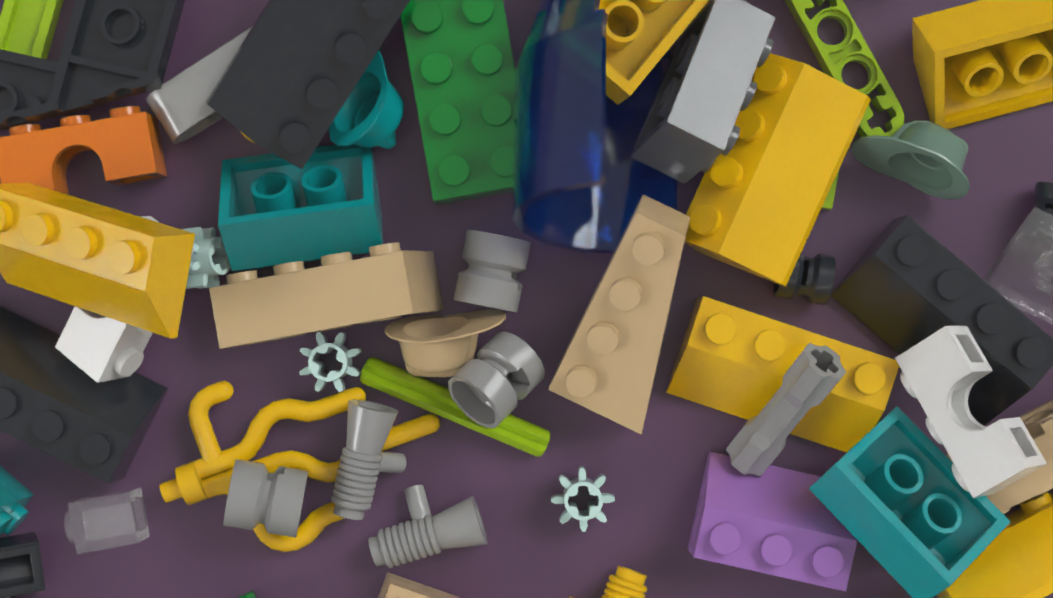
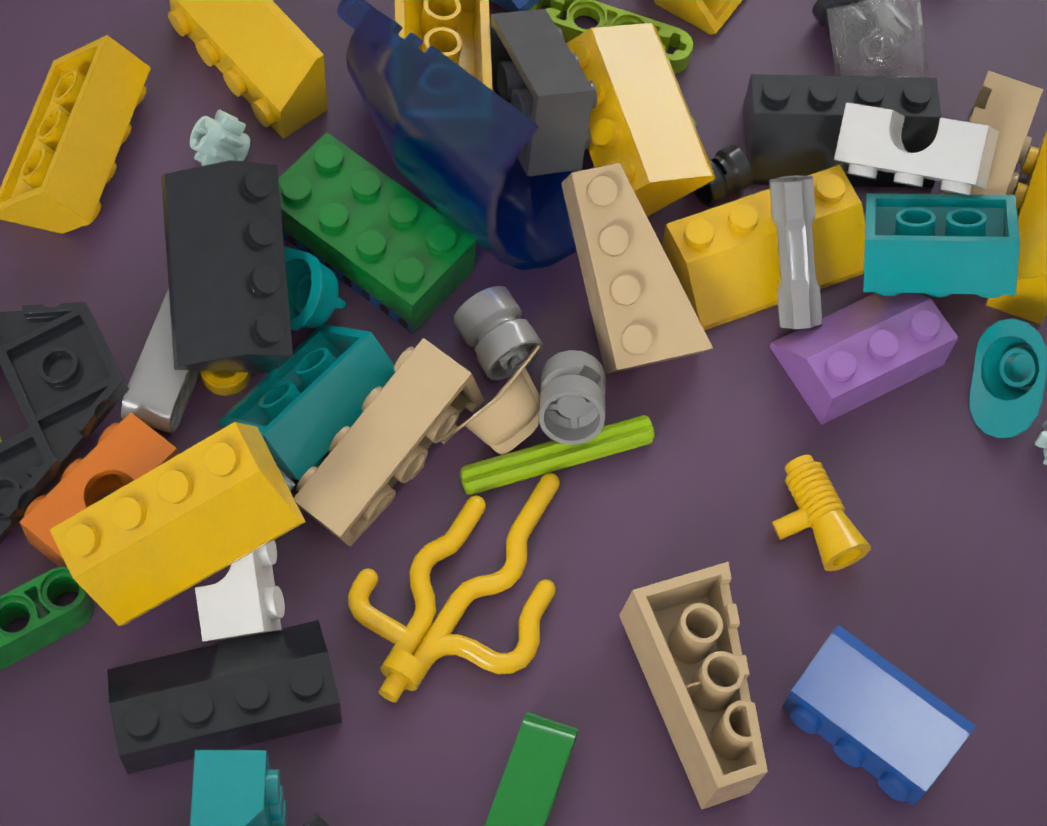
camera: 45 degrees left, 25 degrees down
(107, 521) = (359, 752): clear brick -> none
(265, 498) = (470, 615): light grey wheel -> none
(317, 367) = (438, 477): light aqua gear -> none
(362, 458) = (524, 534): light grey piece -> none
(426, 533) = (625, 557): light grey piece -> none
(593, 507) = (713, 438): light aqua gear -> none
(920, 156) = (723, 48): sand green piece -> none

